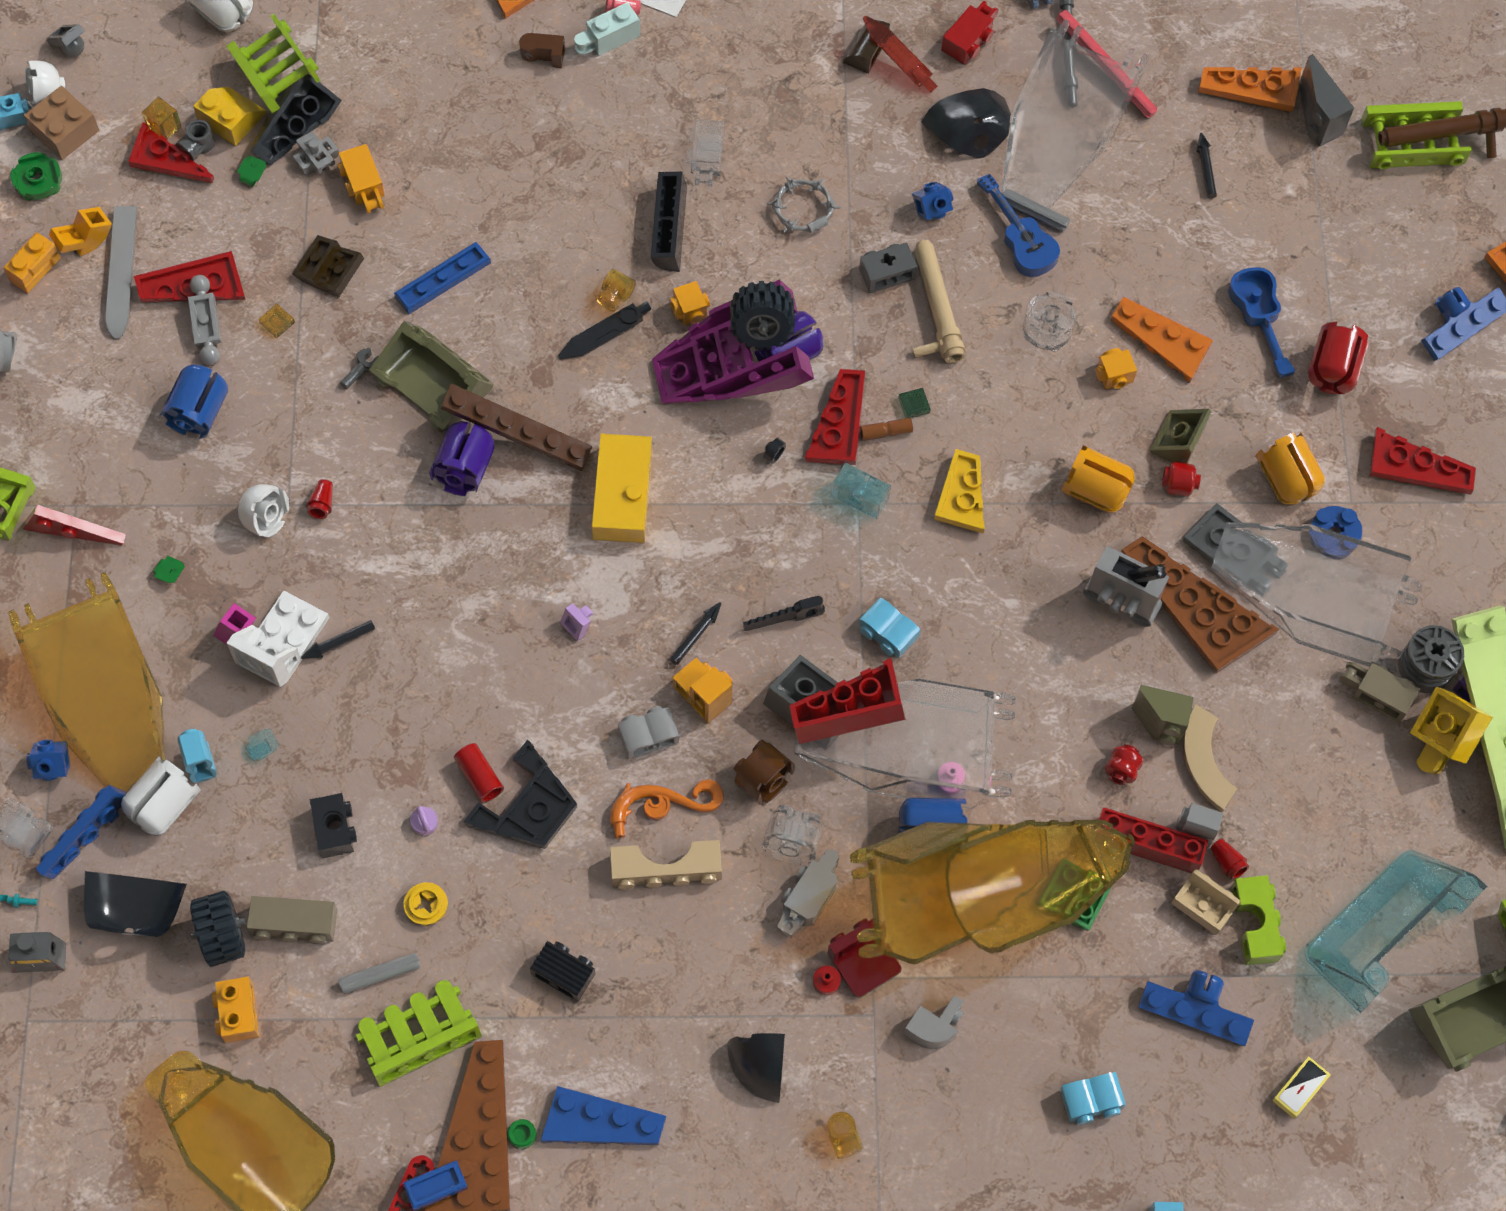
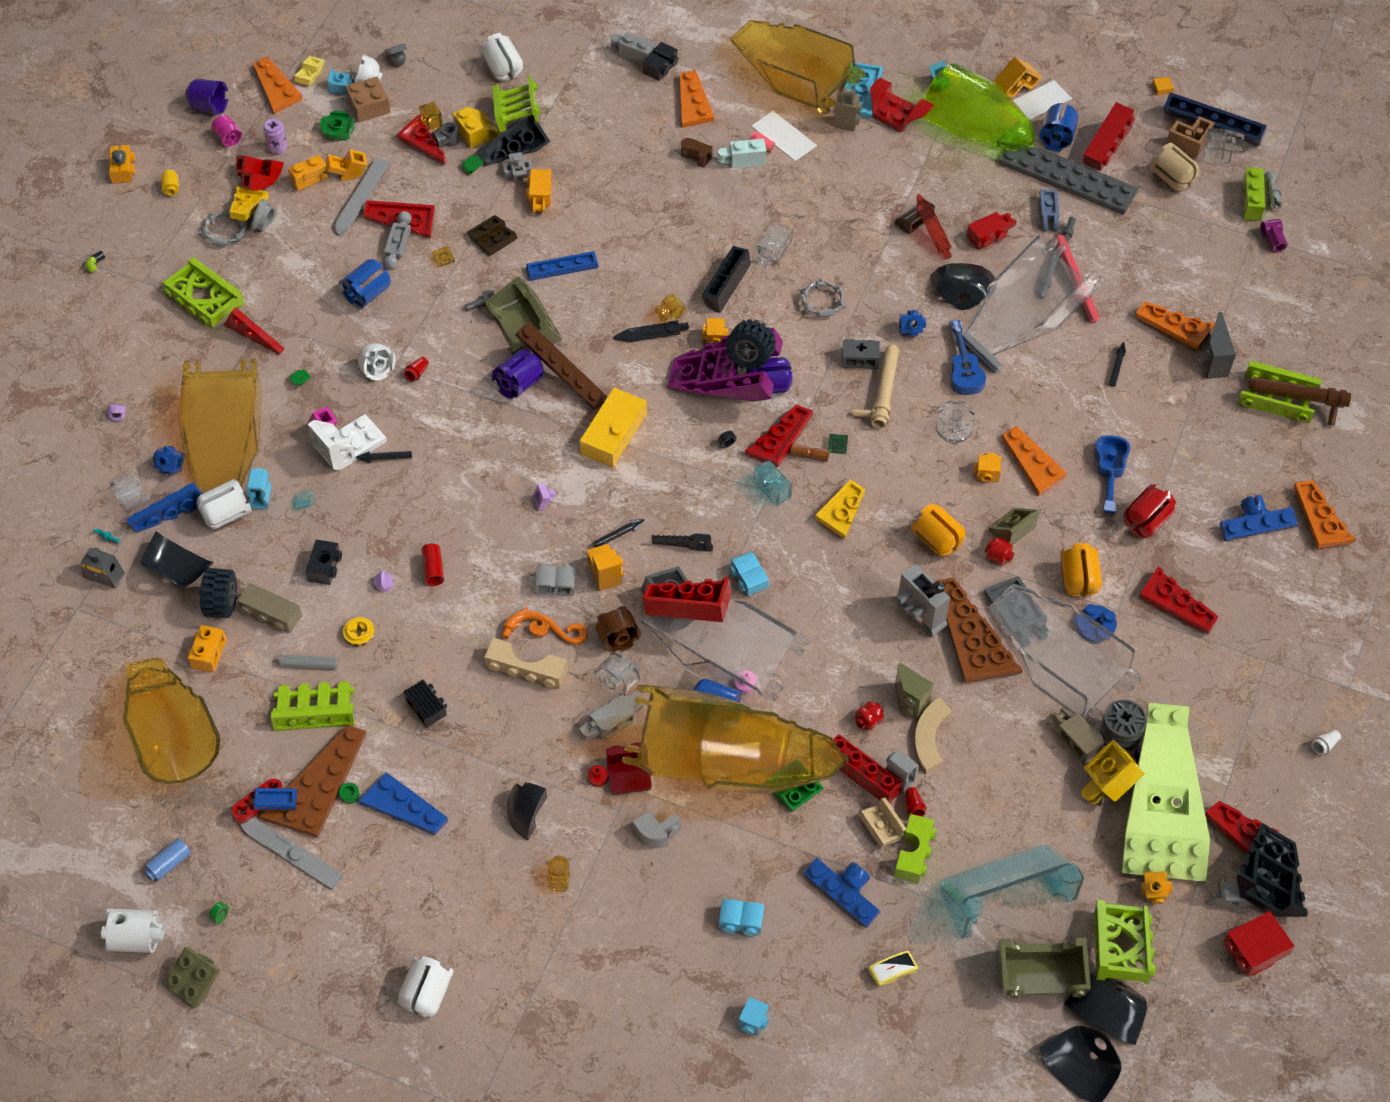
camera: 25 degrees right, 10 degrees down
(537, 810) = (458, 601): black wing -> none

